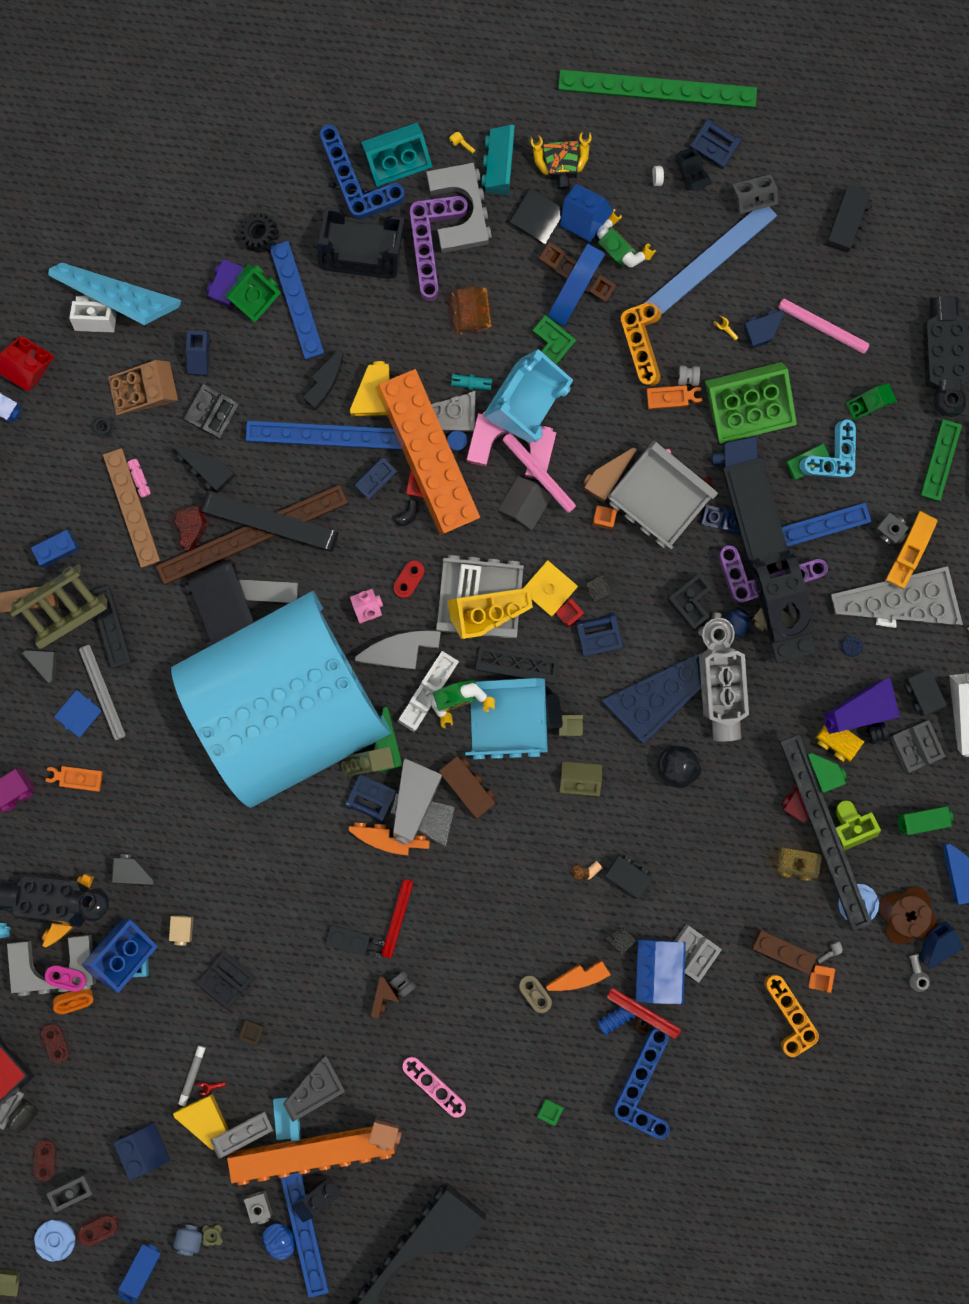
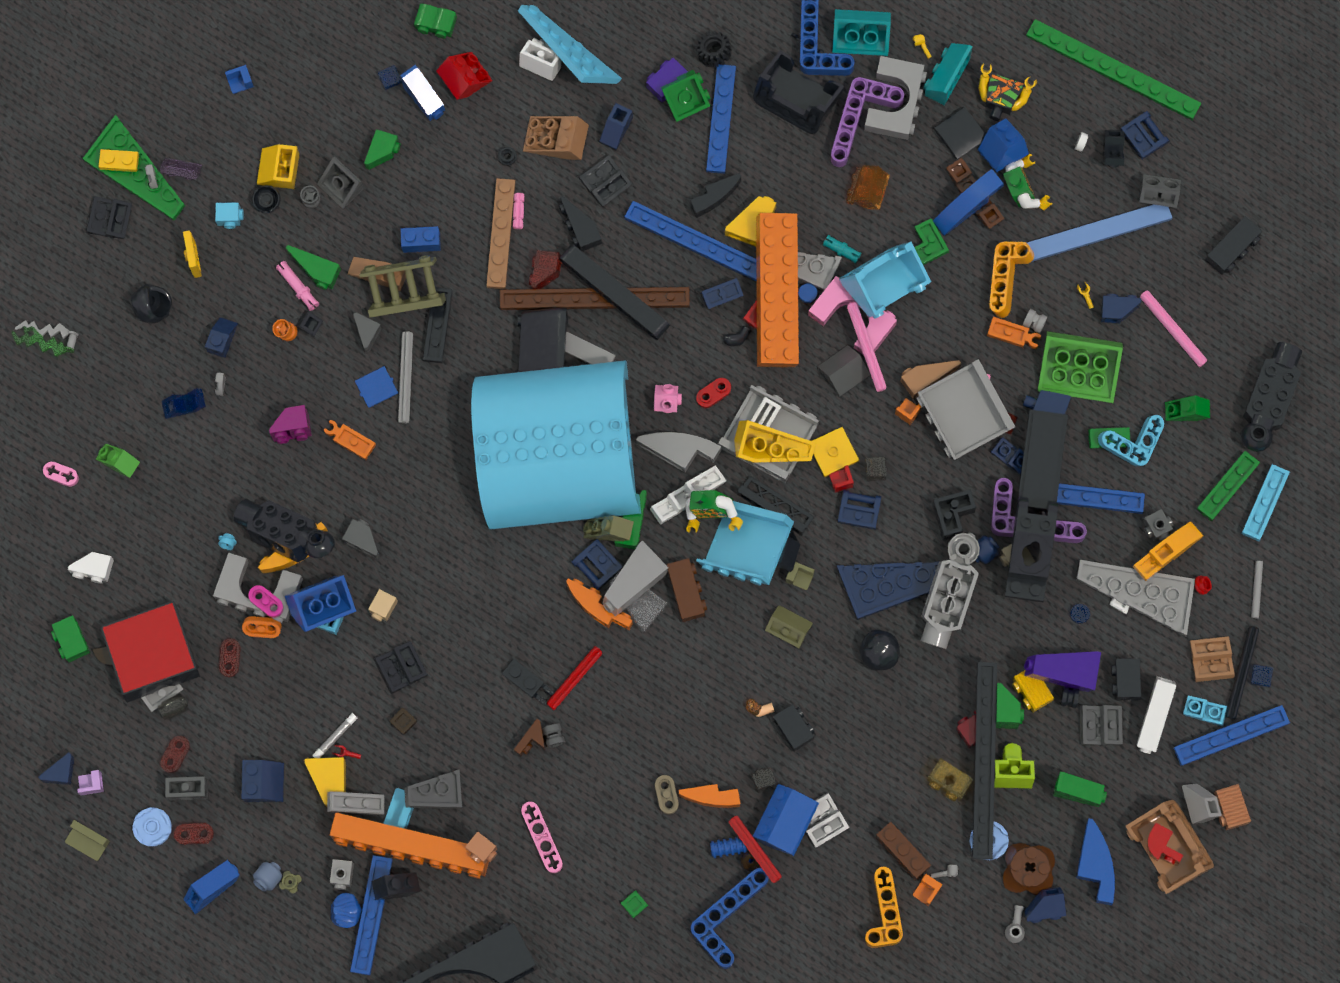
camera: 30 degrees right, 10 degrees down
(957, 568) = (1202, 584): none -> red plate

